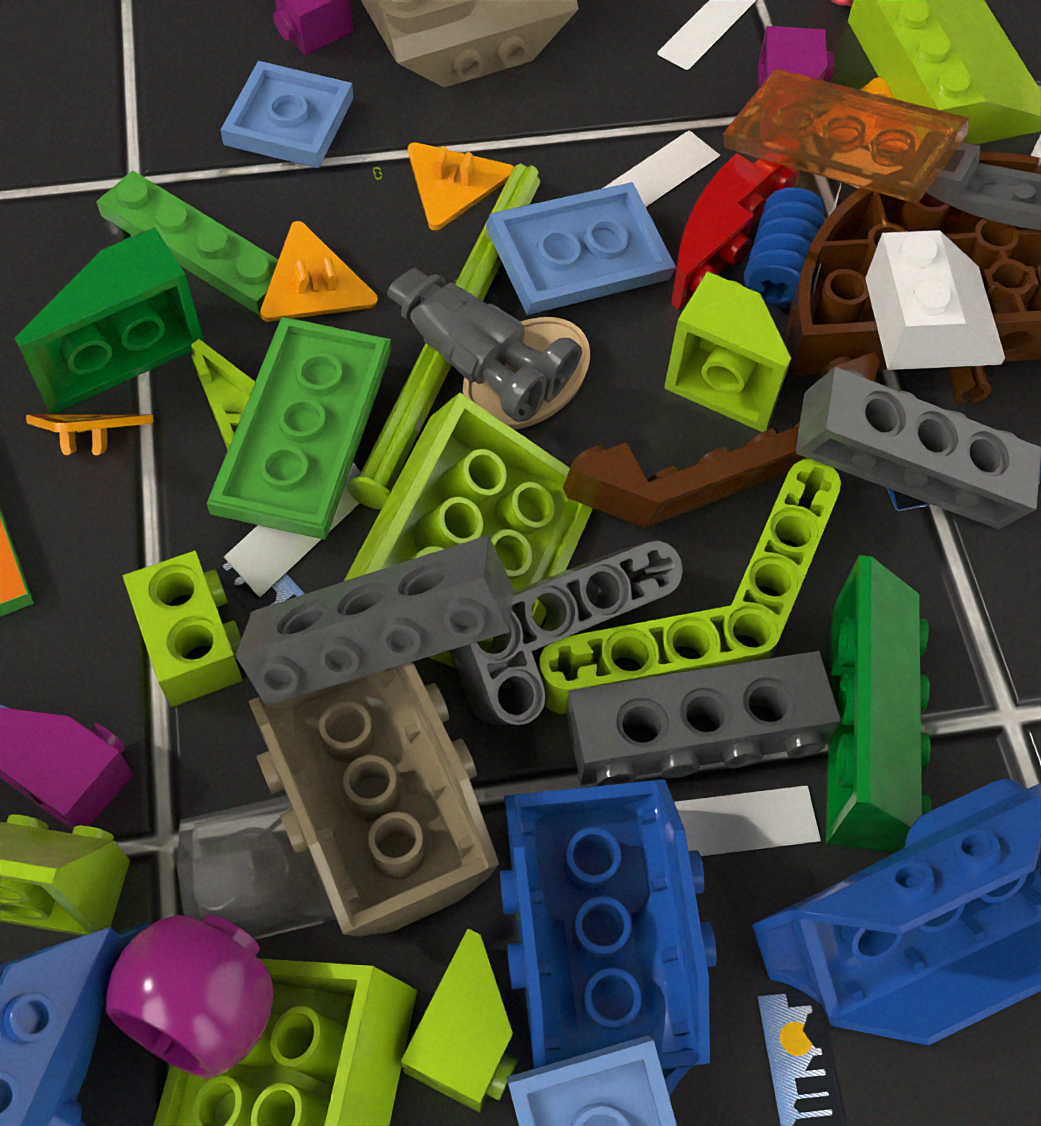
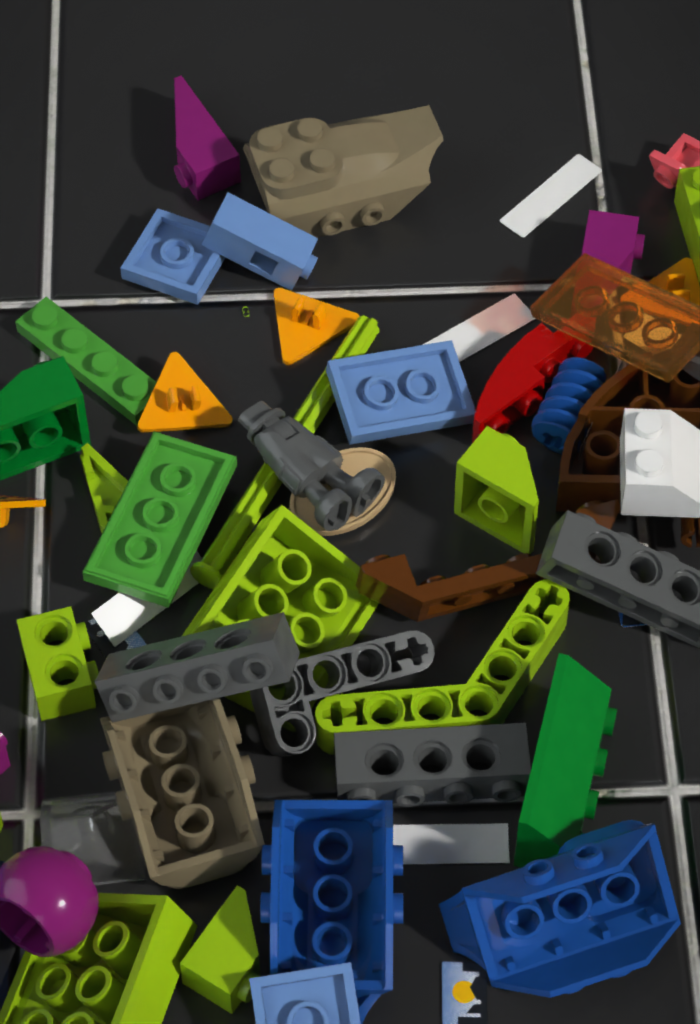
camera: 10 degrees right, 5 degrees down
(387, 87) = (261, 242): none -> medium blue brick

